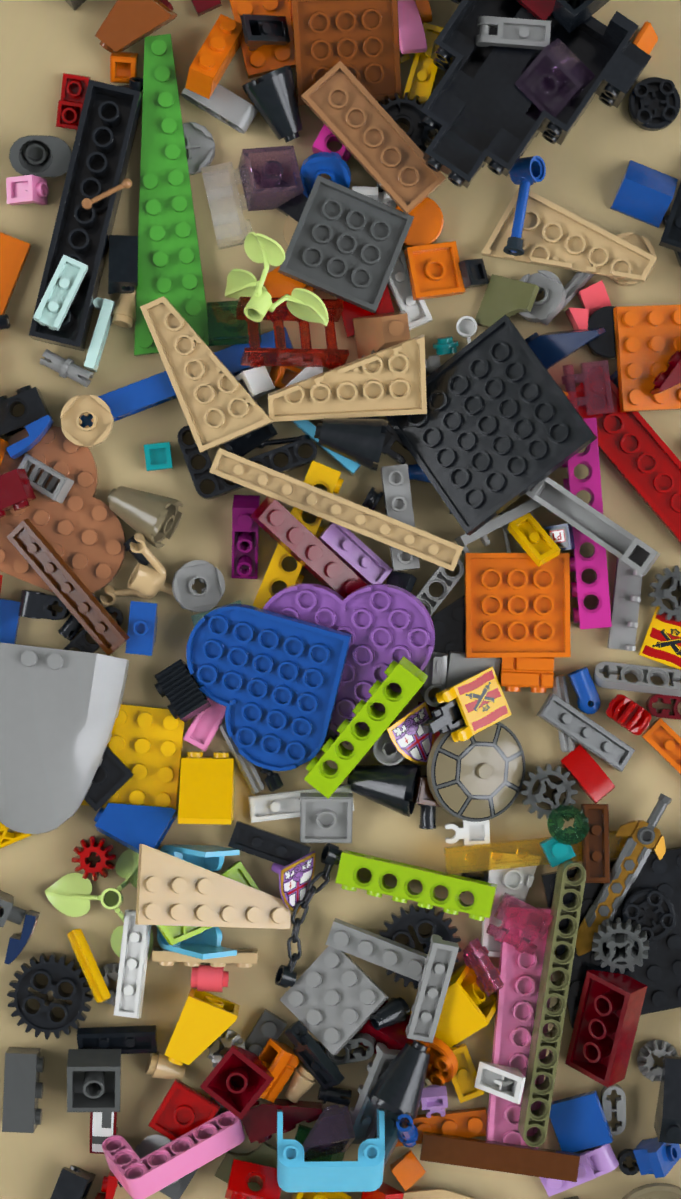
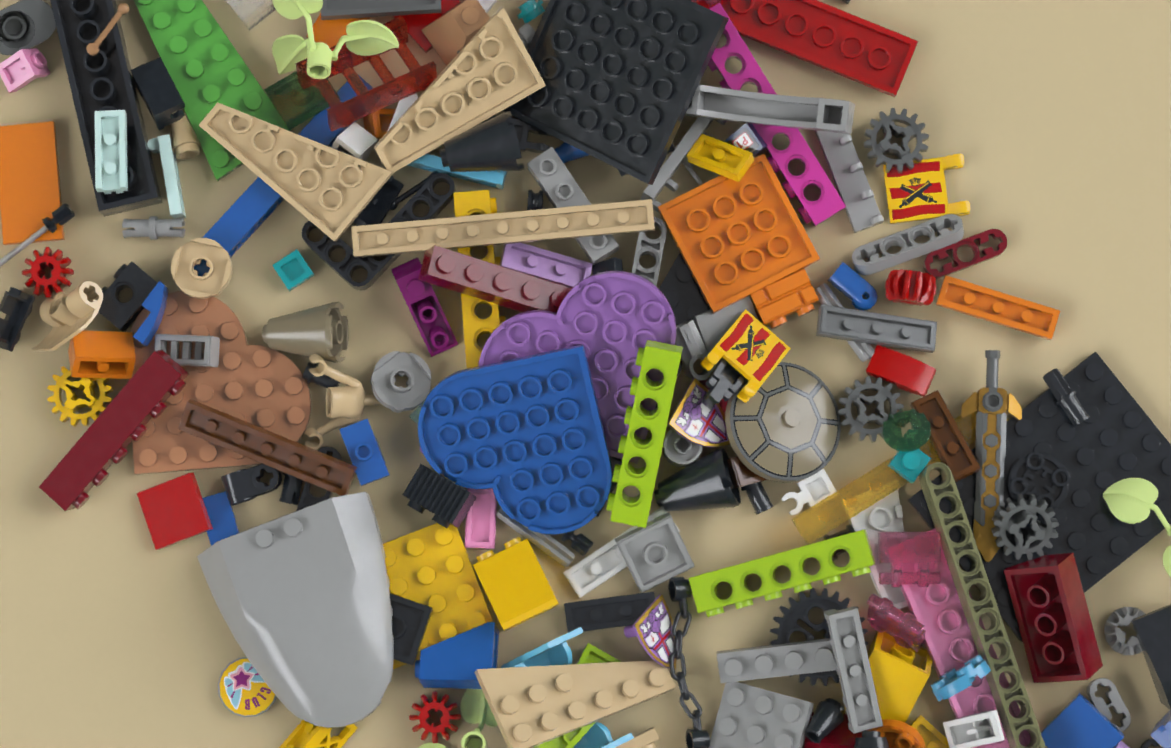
camera: 25 degrees left, 5 degrees down
(507, 1039) = (956, 681): none -> dark azure plate

